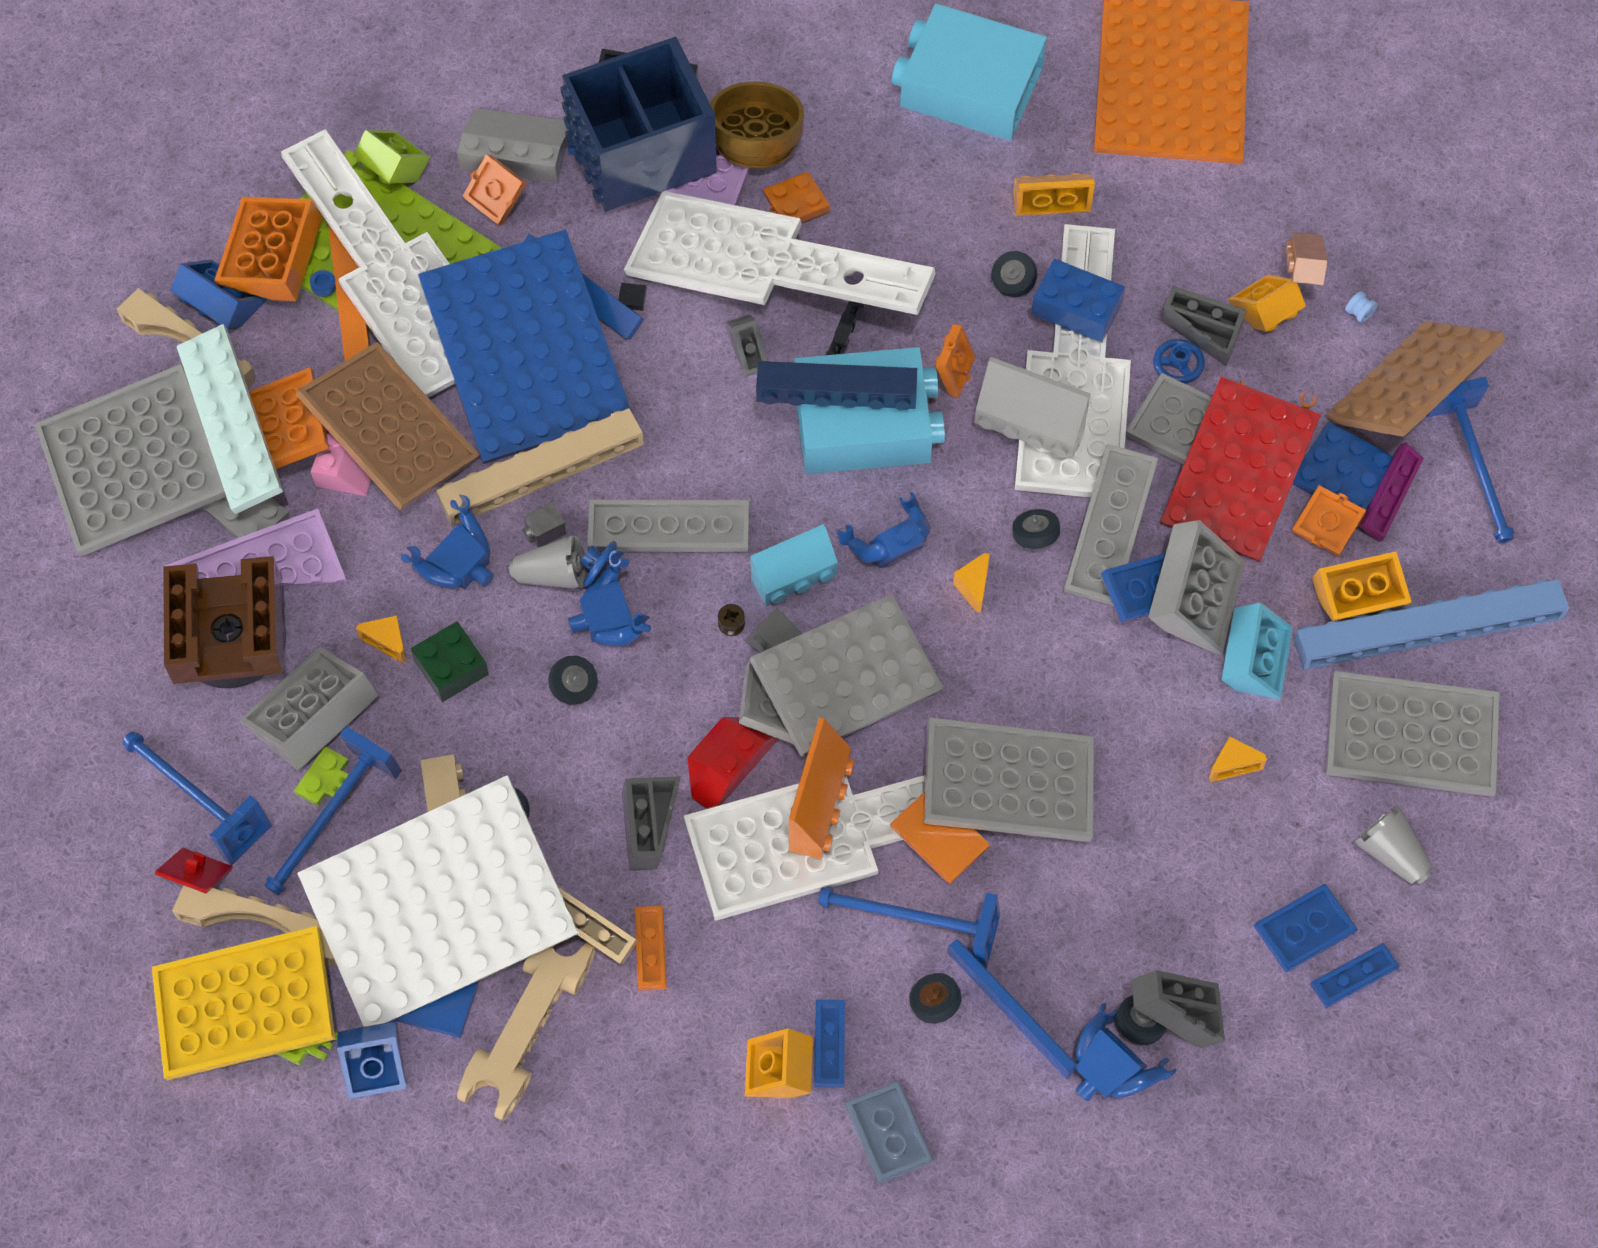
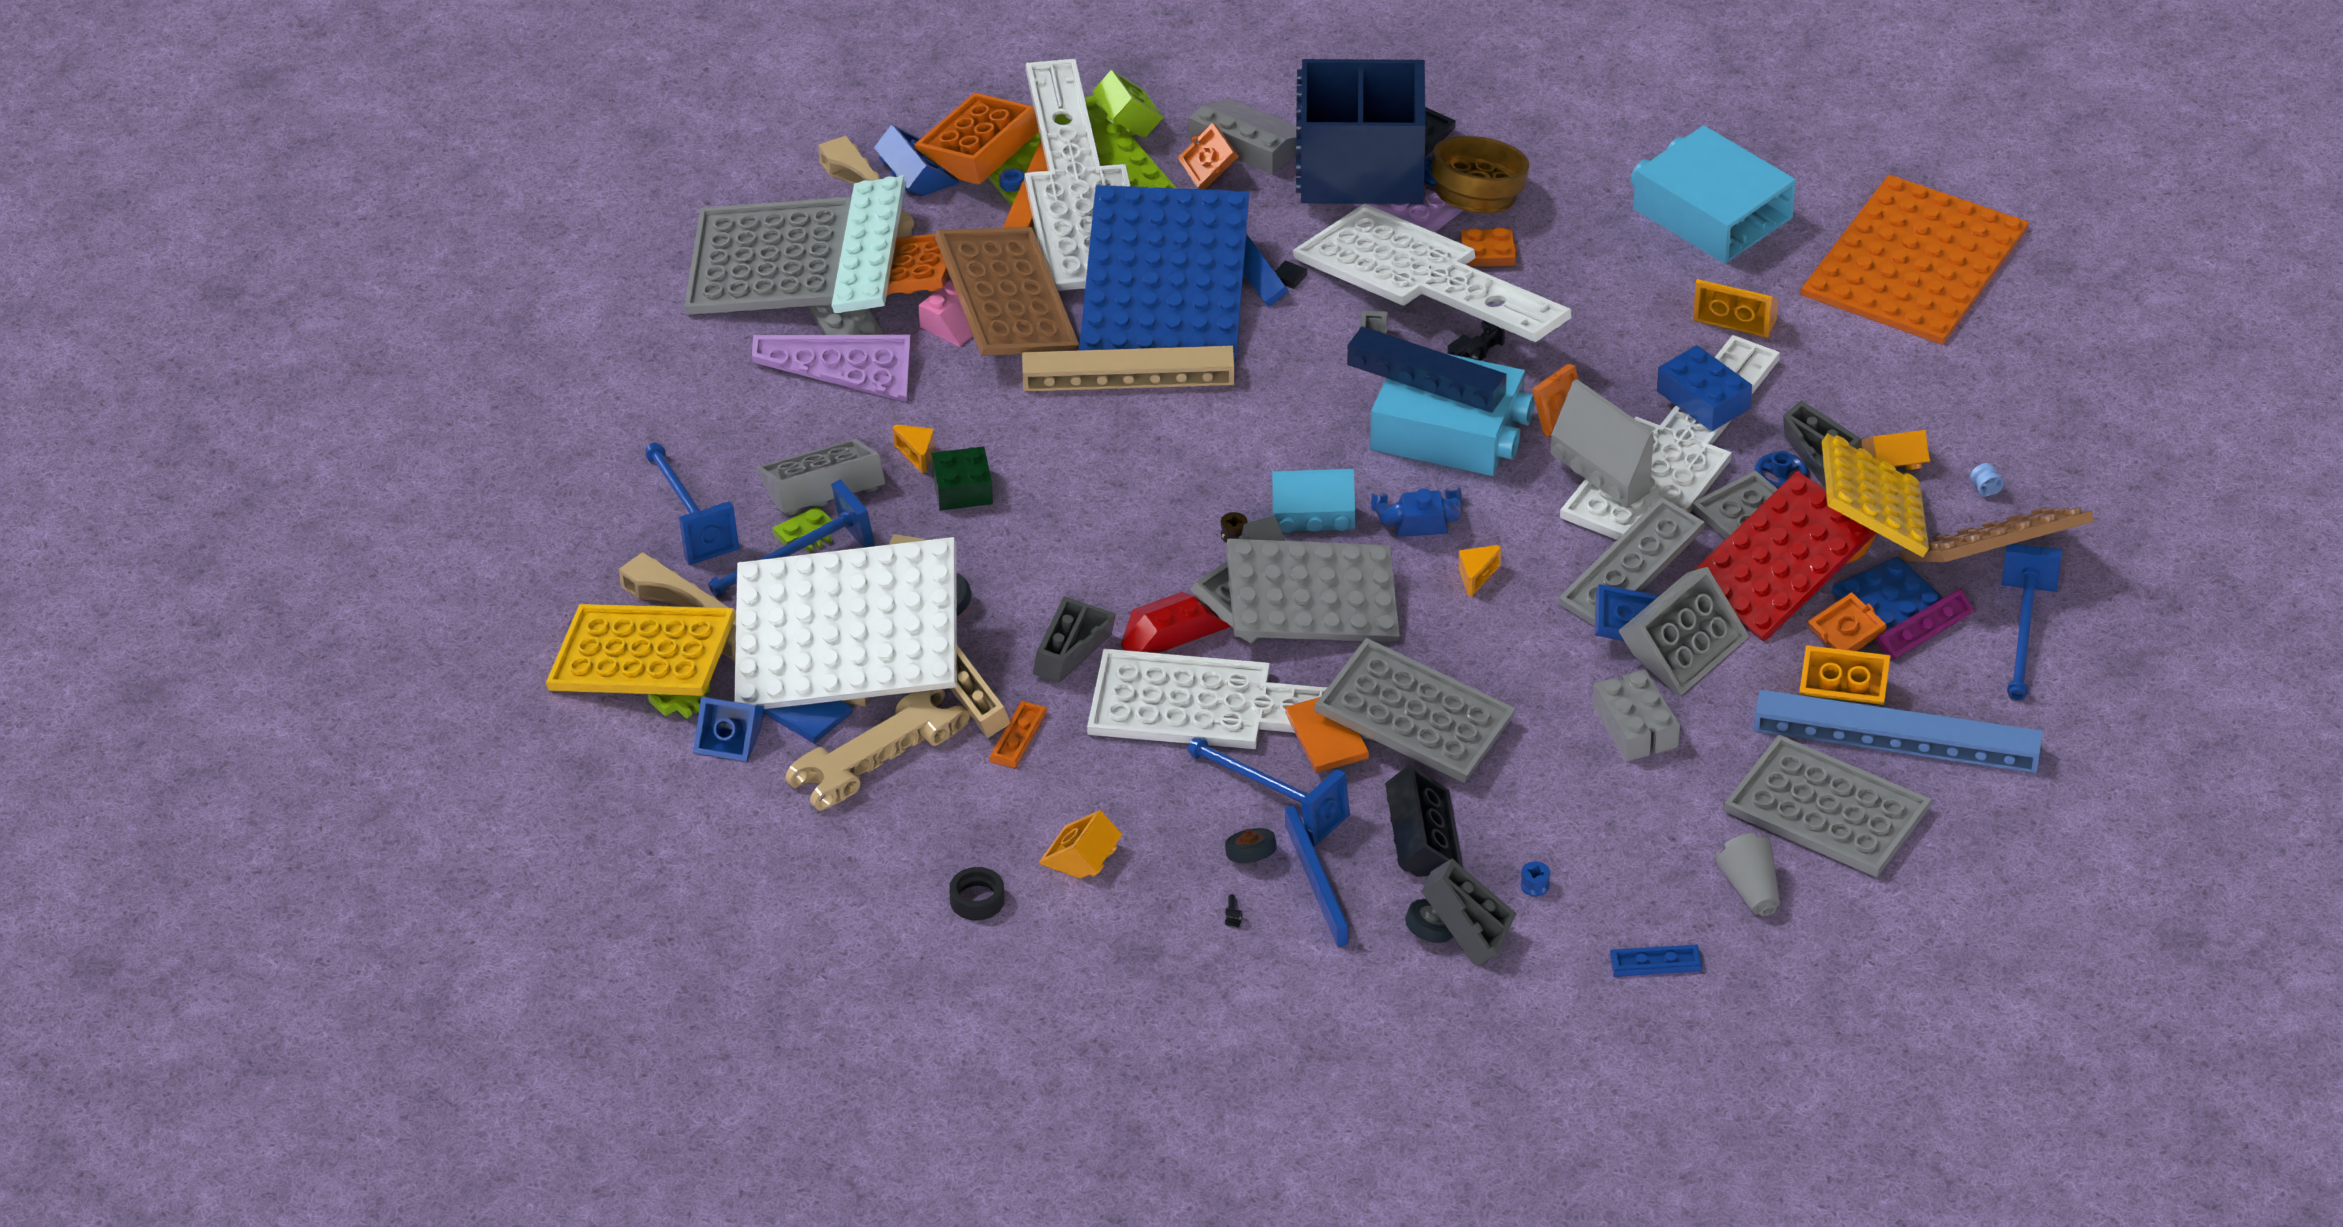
camera: 25 degrees right, 20 degrees down
(194, 870) = (654, 549): red piece -> none
(206, 609) = (777, 392): reddish brown piece -> none
(458, 557) = (1014, 409): blue torso -> none
(544, 525) = (1105, 410): flat silver brick -> none
(551, 564) = (1096, 437): light grey cone -> none
(572, 680) = (1063, 525): black wheel -> none
(595, 561) = (1134, 444): blue piece -> none
(606, 609) = (1125, 485): blue torso -> none
(669, 525) = (1217, 444): light grey plate -> none
(691, 1149) = (977, 909): none -> black tyre
(820, 792) = (1229, 652): orange slope -> none
(830, 1043) = (1136, 848): blue plate -> none
(888, 1132) = (1151, 928): sand blue tile -> none
(957, 1087) = (1233, 916): none -> black hand
(1014, 273) = (1656, 353): black wheel -> none
(1036, 528) = (1559, 547): black wheel -> none
(1077, 907) = (1421, 822): none -> black slope
(1110, 1064) = (1382, 942): blue torso -> none
(1201, 699) = (1633, 711): none -> light grey piece
(1205, 934) = (1535, 878): none -> blue wheel
(1236, 760) = (1640, 769): light orange slope -> none
(1257, 651) = (1715, 699): medium azure slope -> none
(1297, 376) = (1874, 494): none -> yellow plate
(1305, 927) = (1631, 912): blue tile -> none
(1306, 258) = (1949, 420): nougat brick -> none

